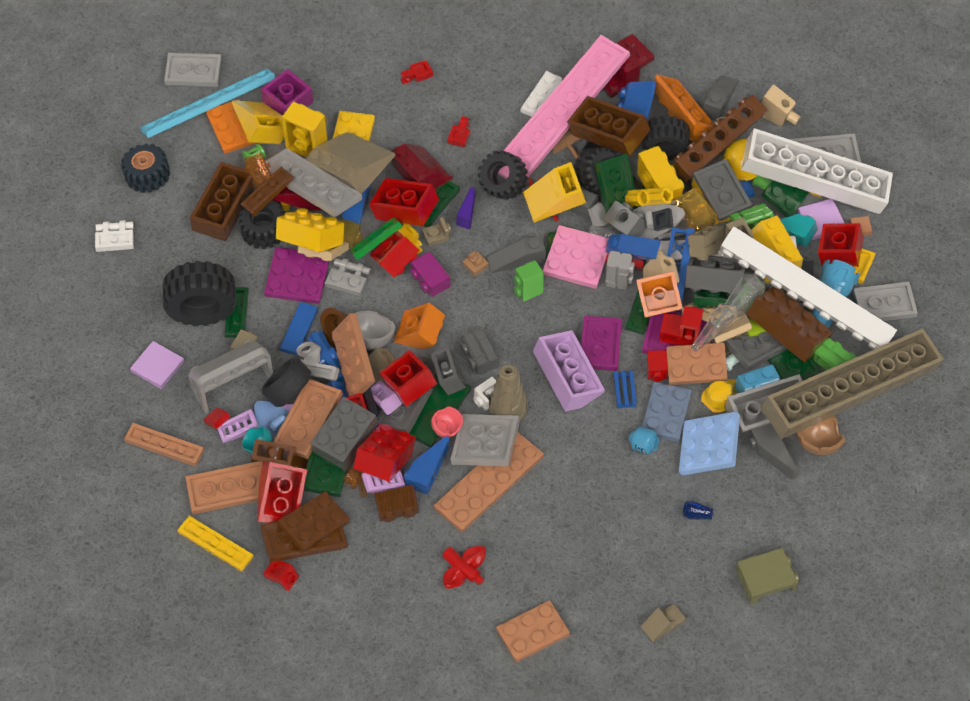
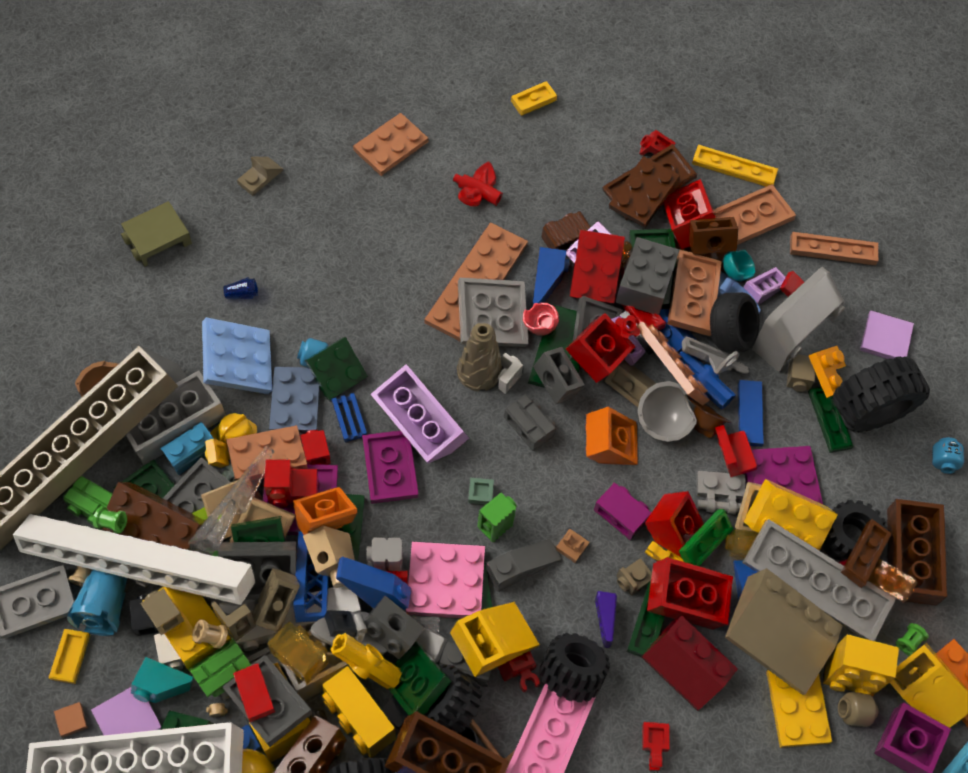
camera: 160 degrees right, 5 degrees up
(159, 264) = (948, 455): none -> dark azure head
(226, 339) = (825, 365): none -> light orange plate
(326, 292) = (736, 451): none -> red panel
(381, 649) = (533, 98): none -> yellow plate
(383, 378) = (625, 332): none -> red plate
(534, 311) = (480, 491): none -> sand green plate
(628, 420) = (336, 368): none -> dark green plate
(730, 191) = (254, 692): none -> red tile
(736, 367) = (216, 453): none -> yellow plate
(756, 224) = (209, 634): none -> tan bush
(788, 237) = (161, 611): none -> dark tan brick
(822, 319) = (108, 519): none -> bright green bush
(841, 243) = (95, 664): red brick -> none

